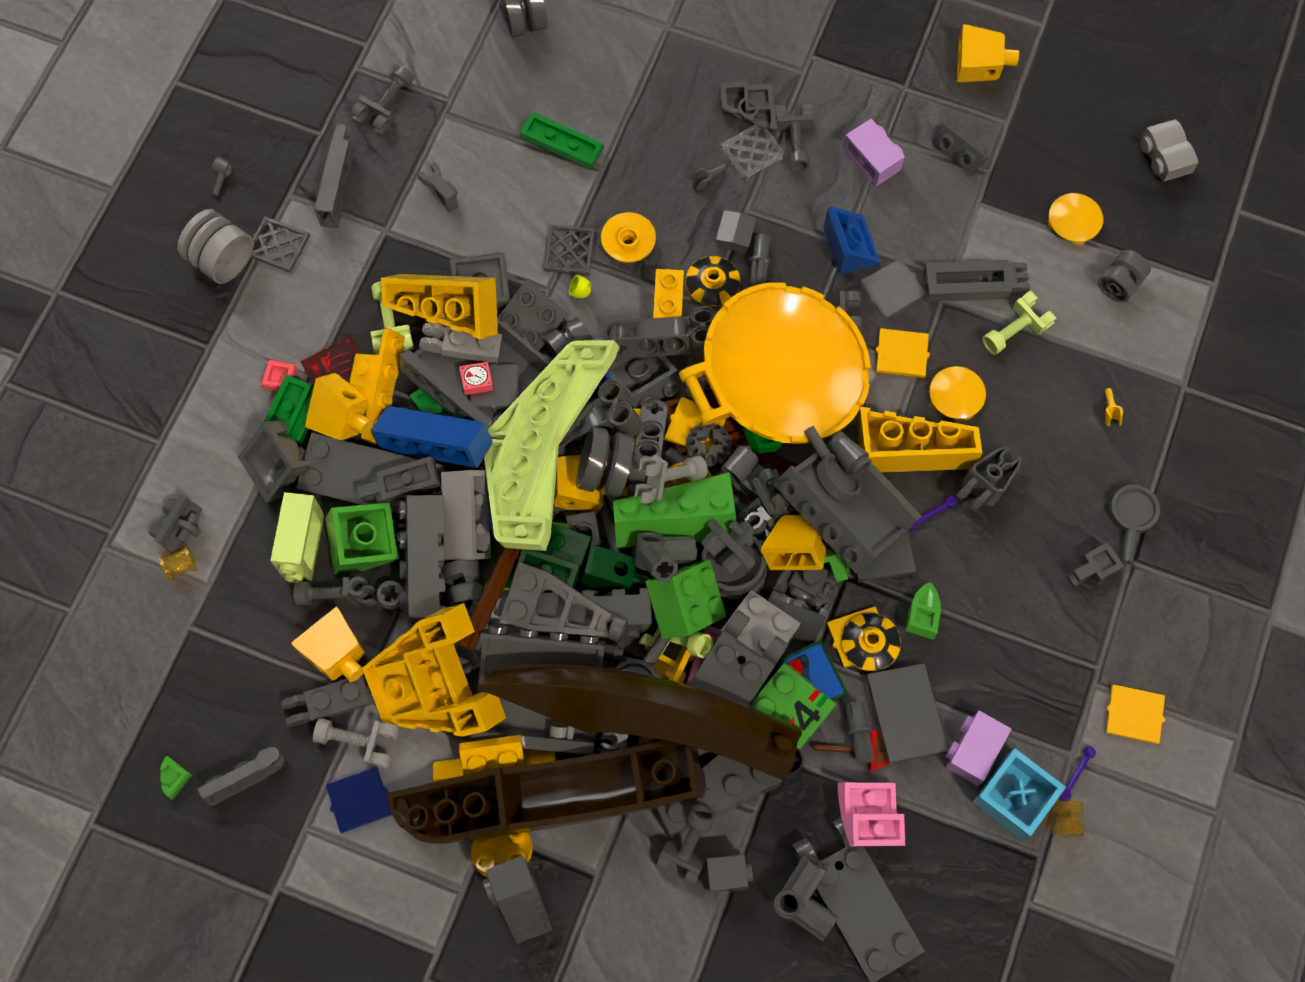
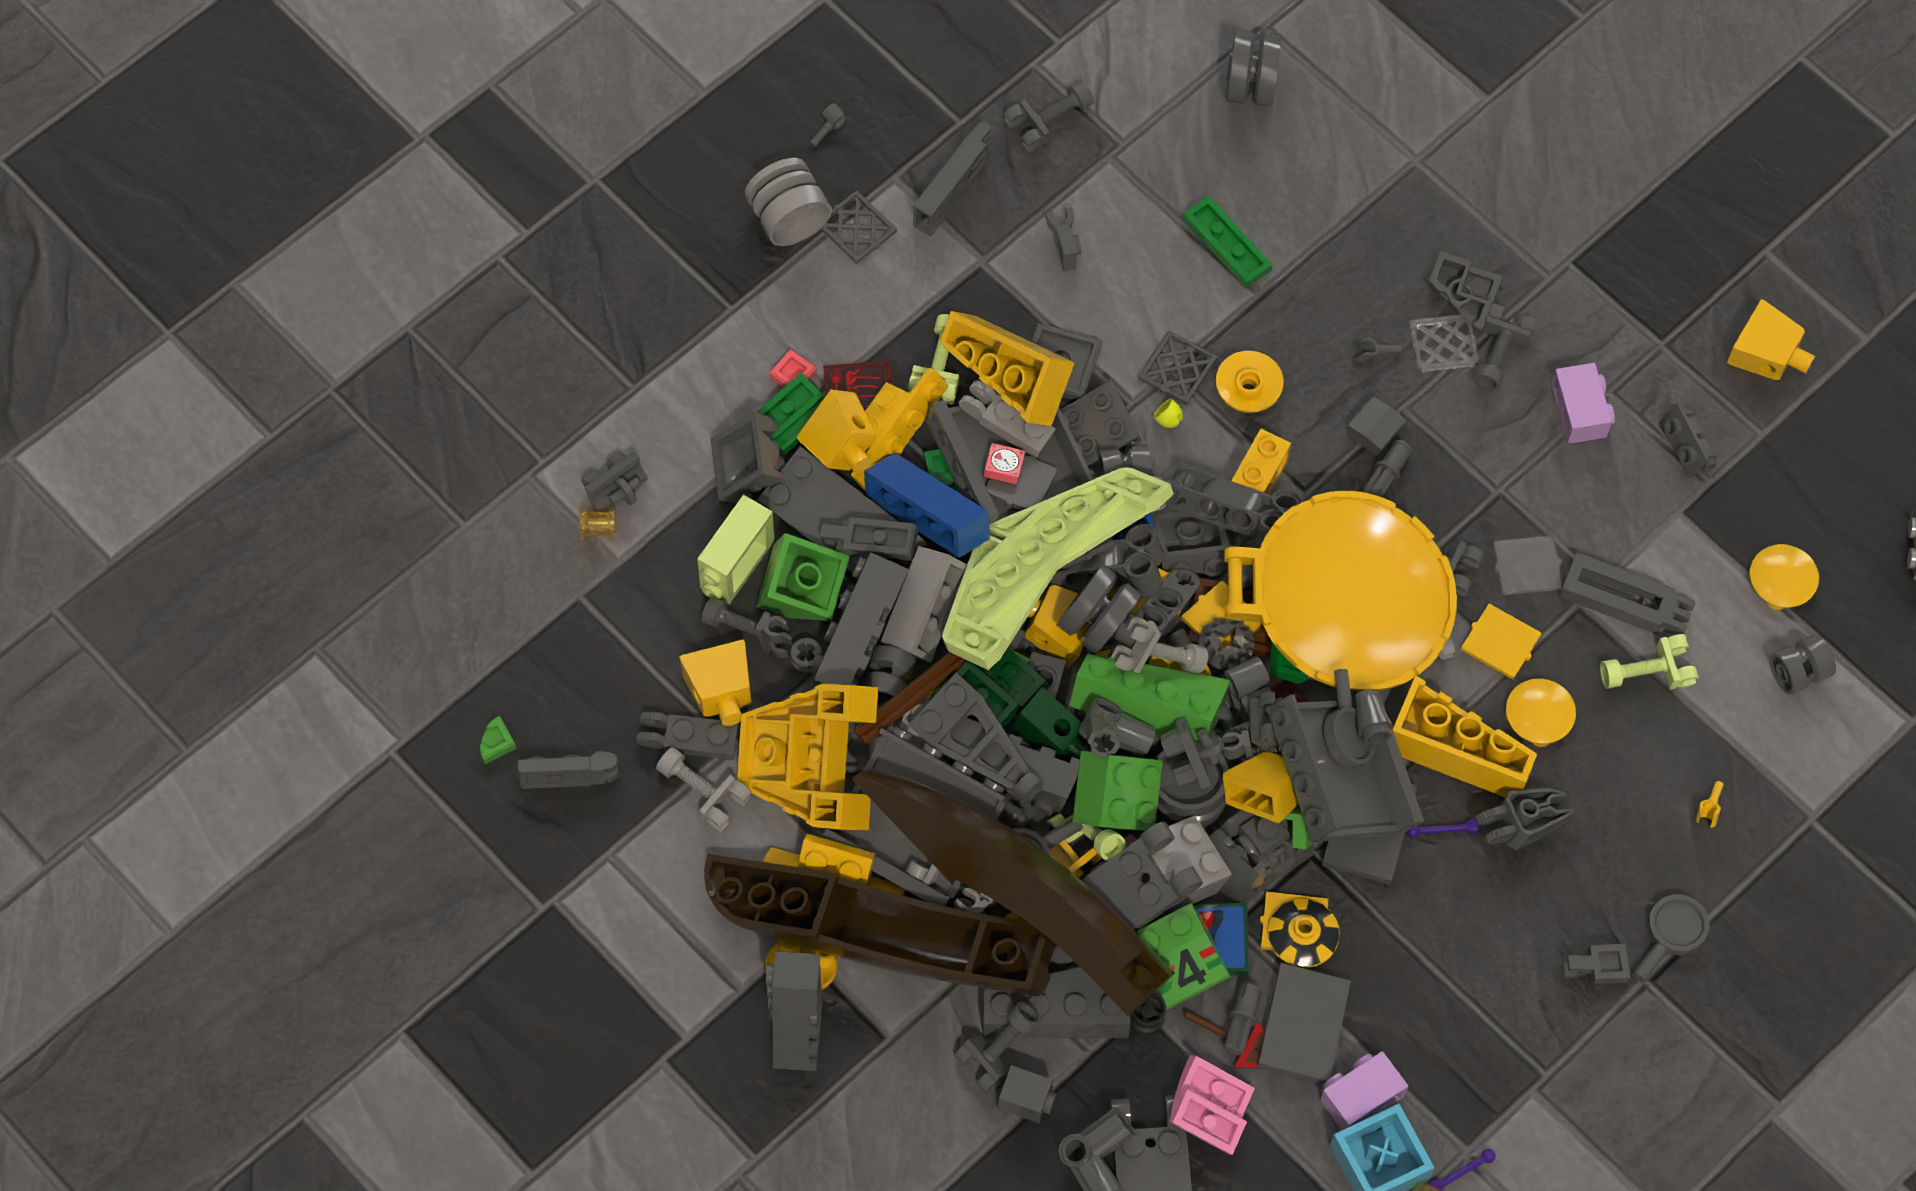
camera: 25 degrees right, 5 degrees down
(359, 800) = (676, 850): clear blue piece -> none
(708, 291) = (1312, 479): dish -> none
(849, 240) = (1504, 491): blue slope -> none
(924, 612) = (1379, 927): bright green plate -> none
(1135, 714) = (1561, 1140): yellow piece -> none

